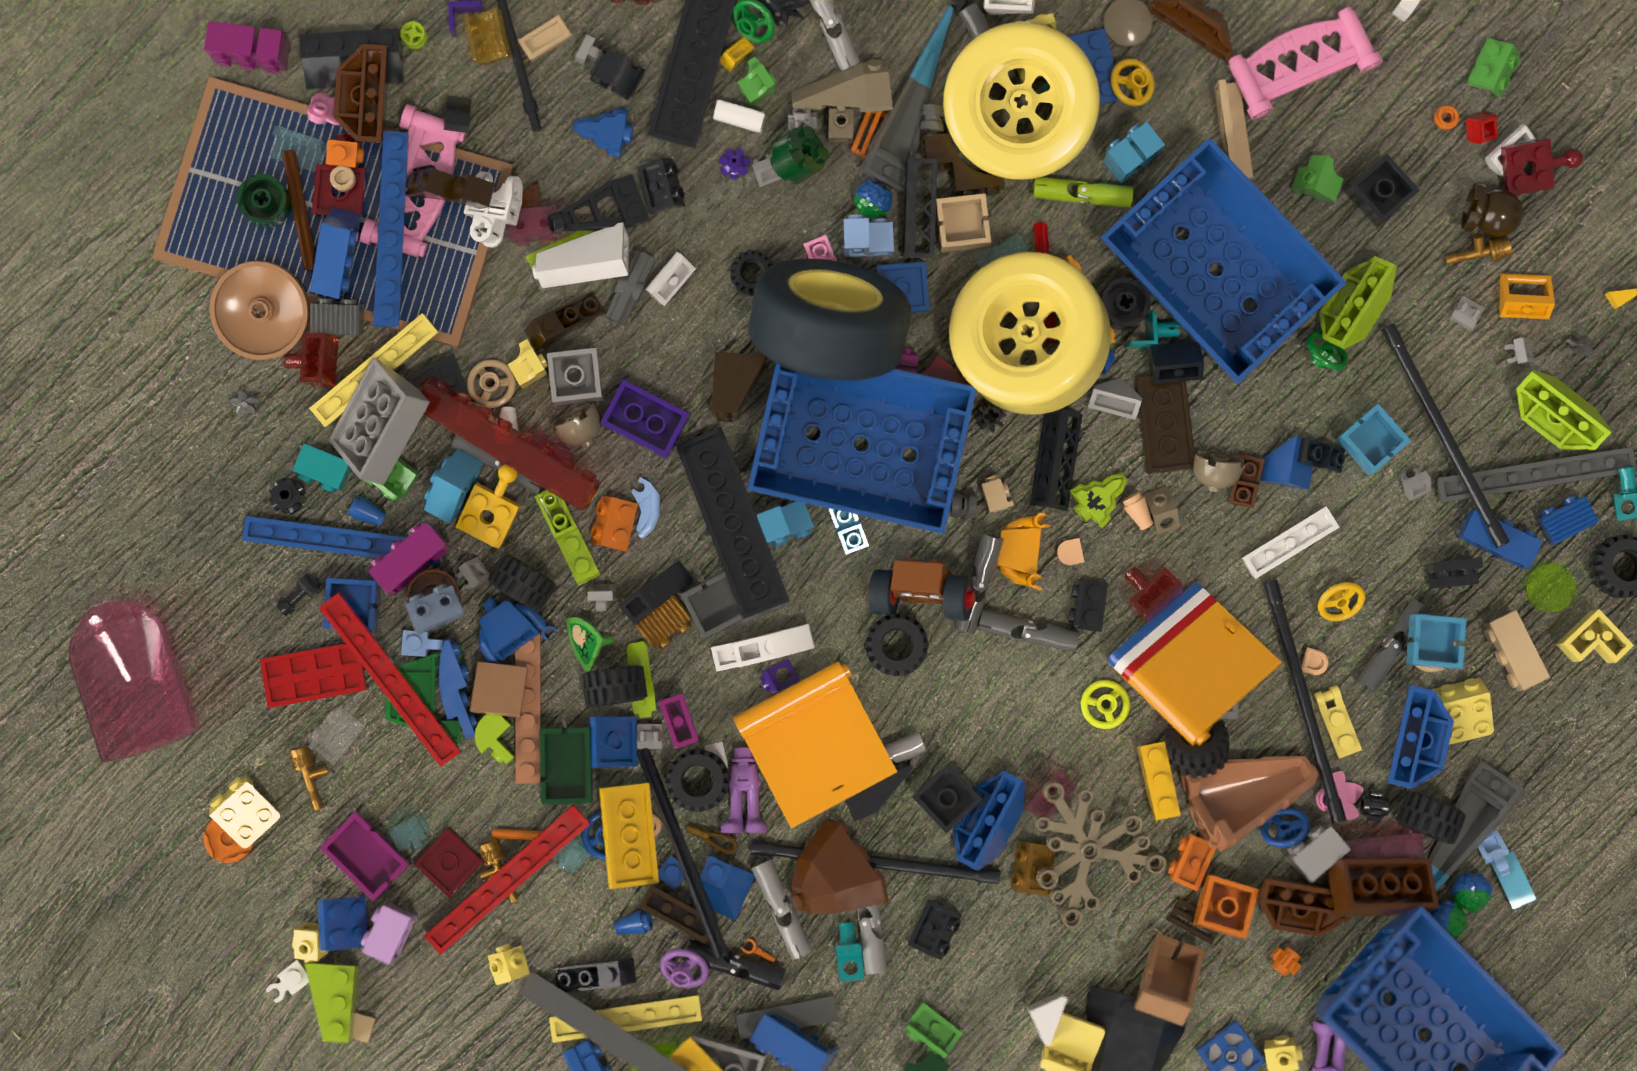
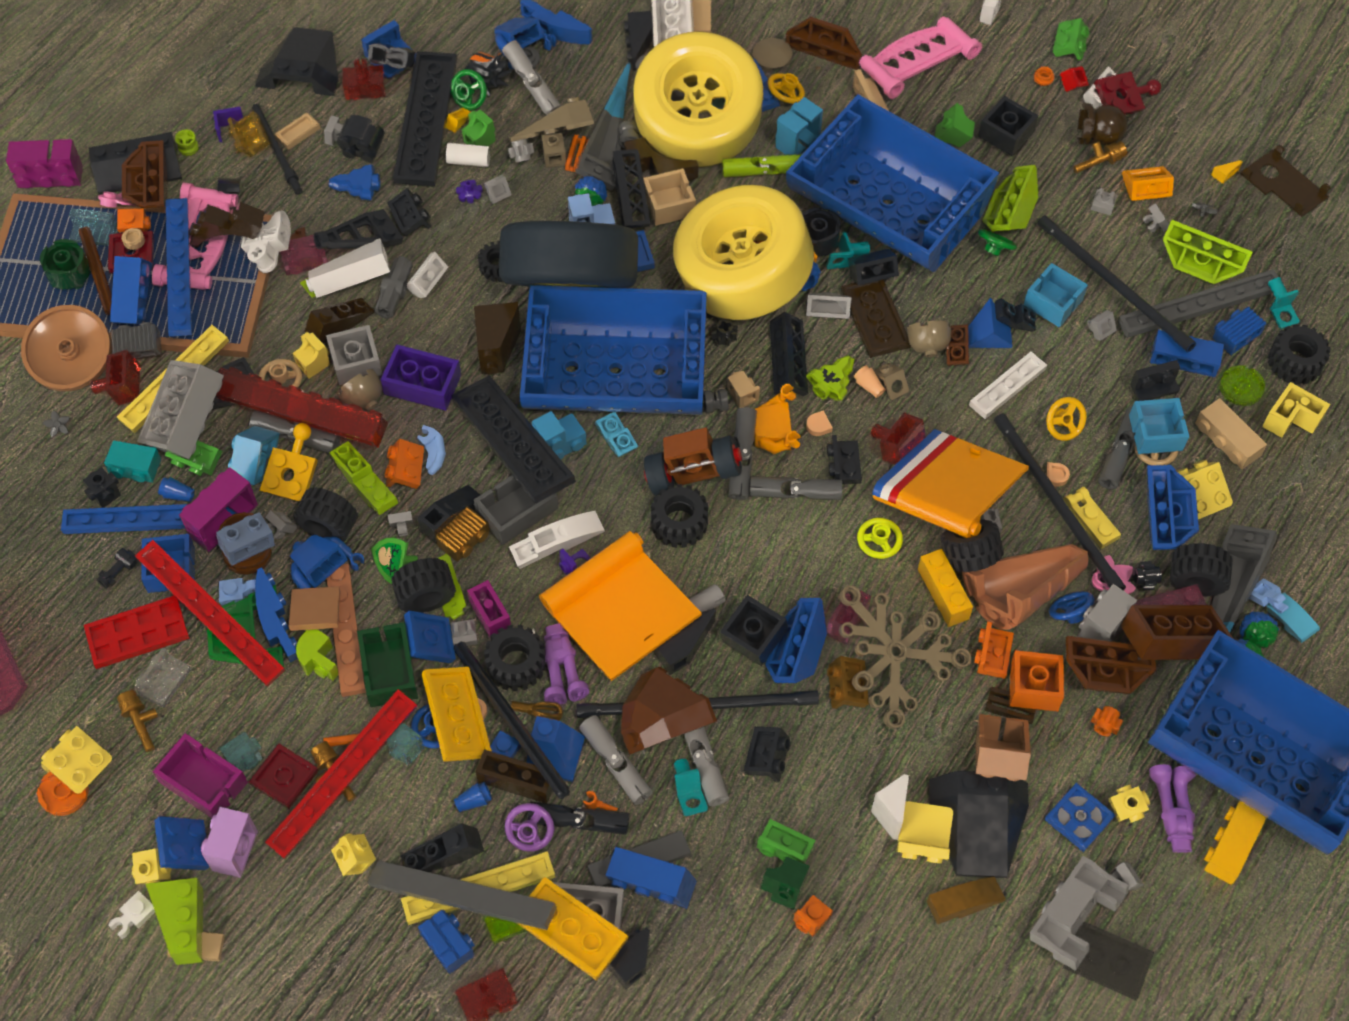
camera: 10 degrees left, 25 degrees down
(798, 155) = (521, 168): dark green brick -> none

